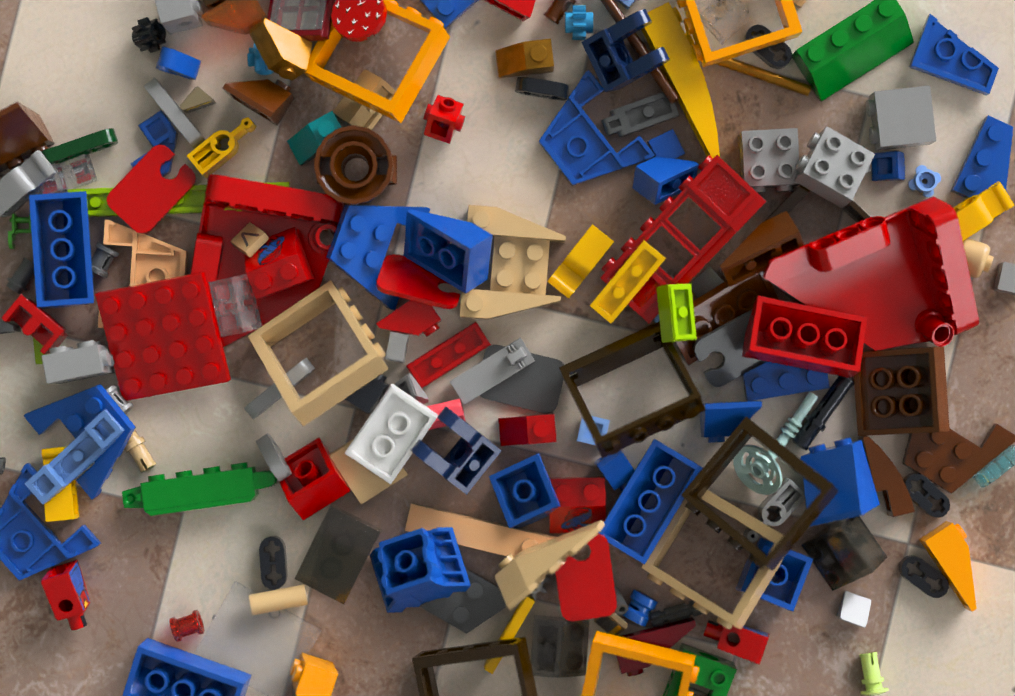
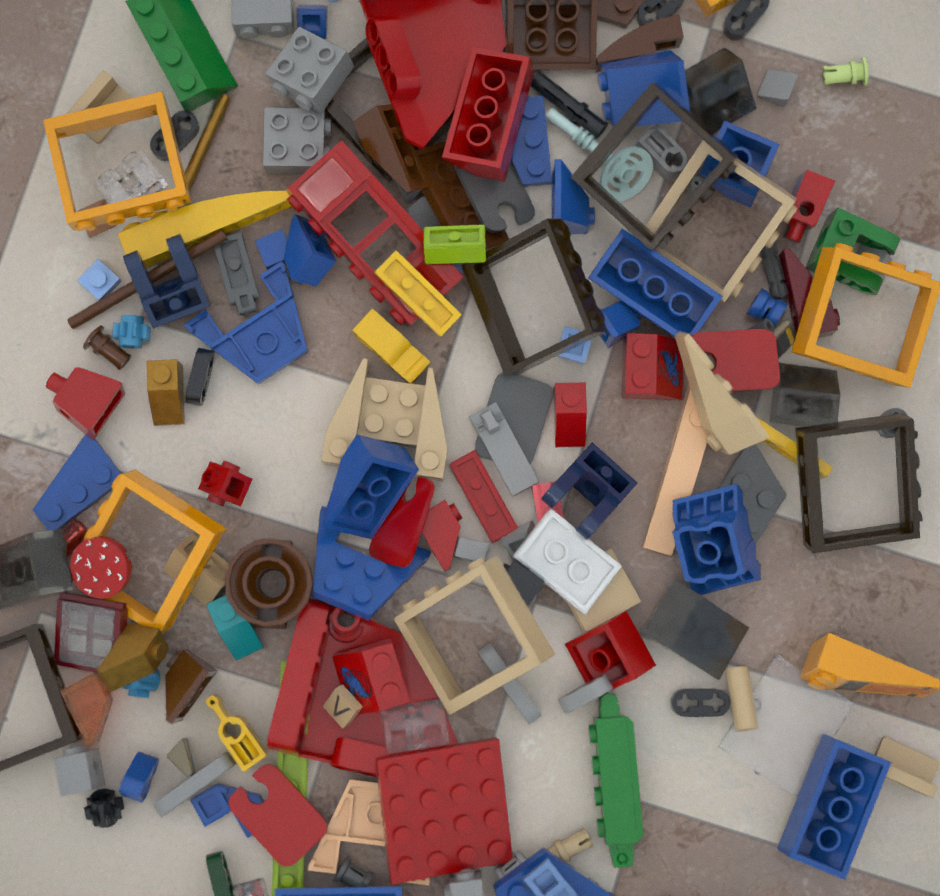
camera: 90 degrees left, 5 degrees down
(186, 625) = (765, 803): clear red bush -> none
(524, 492) = (638, 418): blue slope -> none

